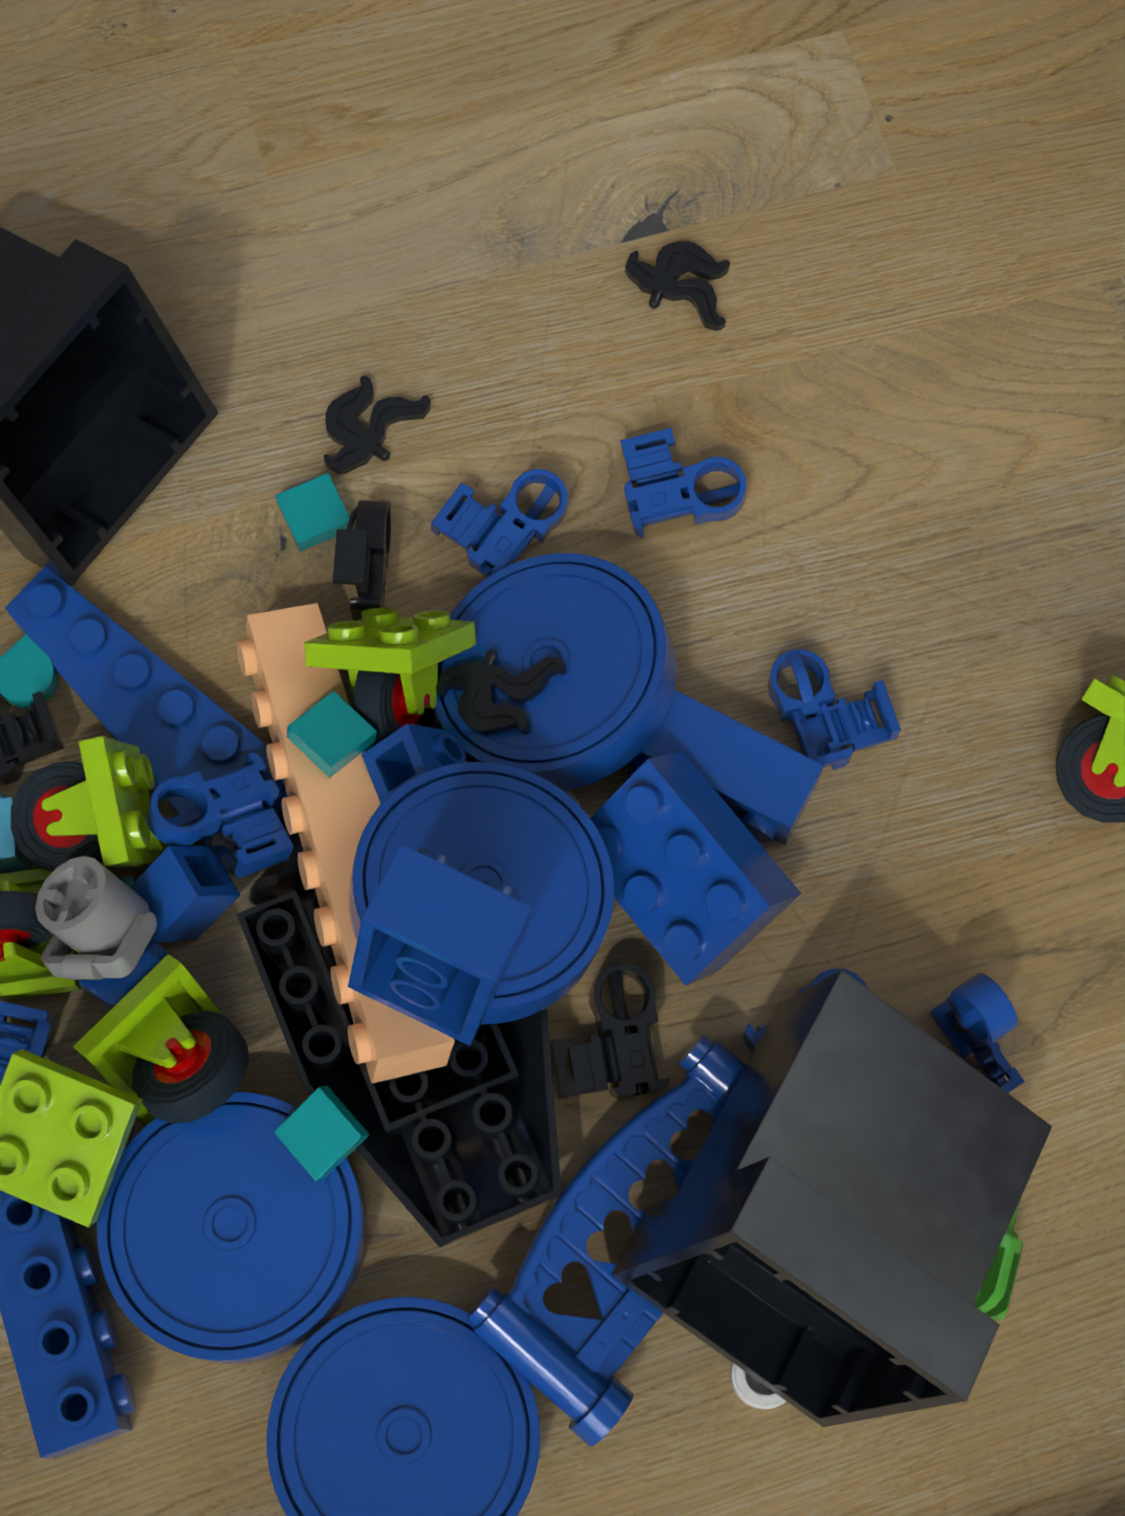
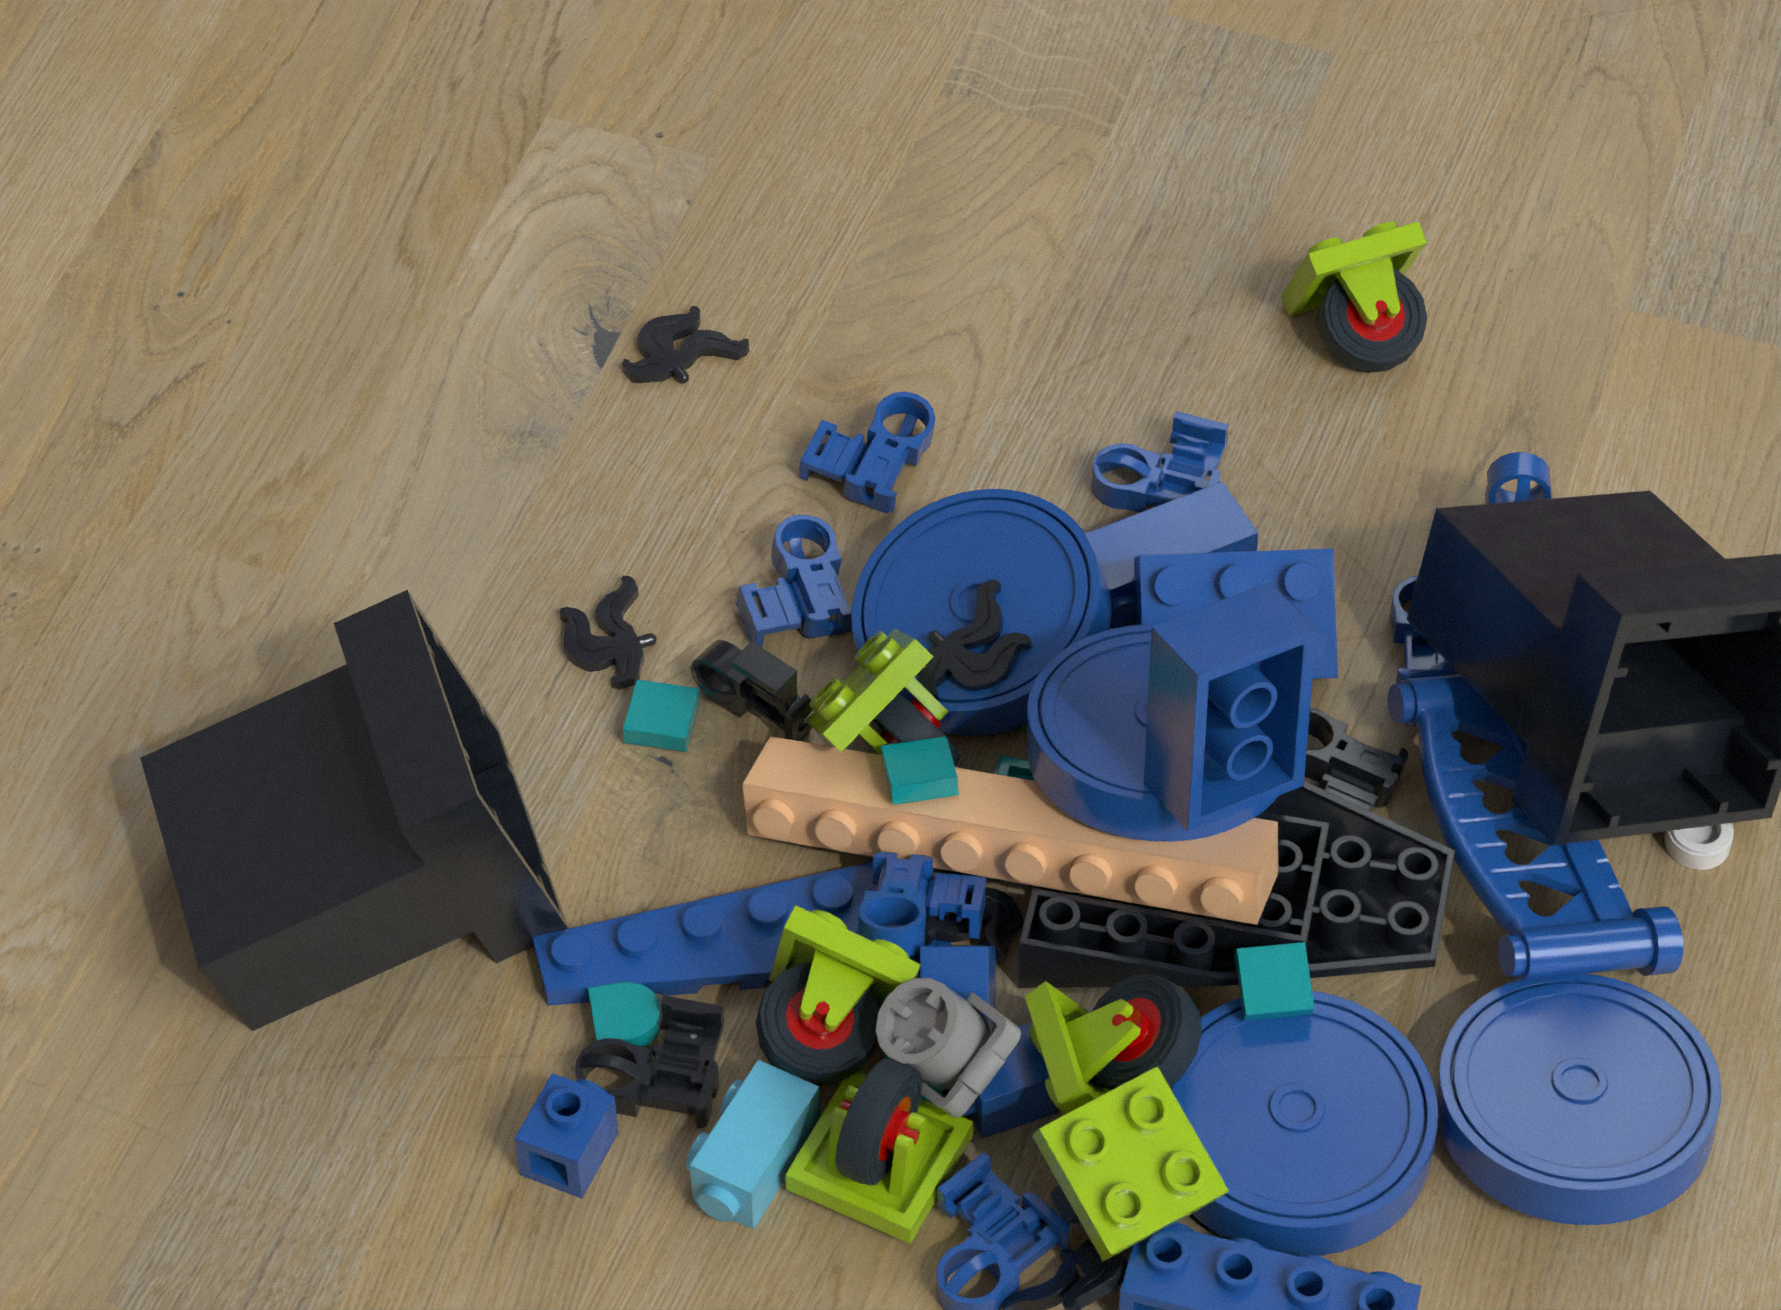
camera: 55 degrees left, 20 degrees down
(409, 754) = (993, 737): blue brick -> none

